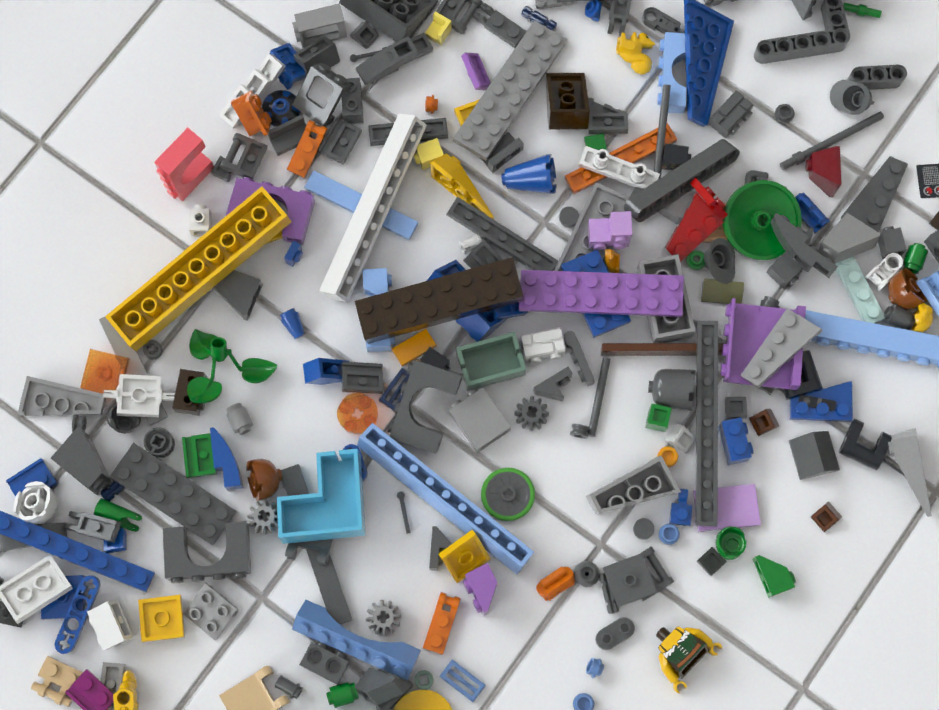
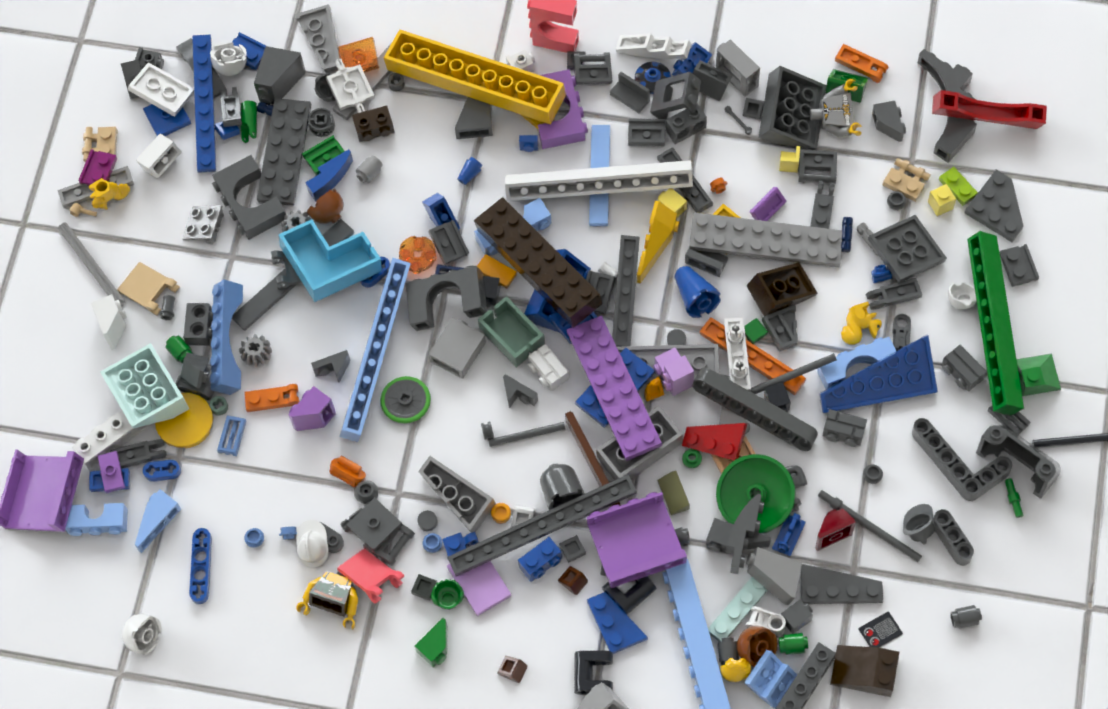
camera: 70 degrees right, 10 degrees down
(74, 612) = (156, 130): blue beam -> none
(79, 421) = (309, 59): dark grey bush -> none
(161, 618) = (181, 191): yellow plate -> none
(205, 345) = (414, 118): green plant -> none
(251, 113) = (630, 54): orange bracket -> none
(306, 149) = (624, 110): orange plate -> none
(393, 57) = (744, 136): dark grey slope -> none
(400, 495) = (338, 337): dark grey hinge -> none
(464, 556) = (334, 384): yellow plate -> none
(534, 406) = (484, 391): dark grey gear -> none
(578, 357) = (551, 402): dark grey hinge -> none
(617, 649) = (312, 543): none -> white piece
(658, 417) = (528, 486): green brick -> none
(675, 607) = (369, 574): none -> coral flag
(707, 194) = (747, 436): red plate -> none
(721, 260) = (698, 476): dark grey piece -> none
(779, 347) = (646, 551): light grey wing -> none
(813, 402) = (610, 610): black sticker -> none
(814, 454) = (564, 635): dark grey slope -> none

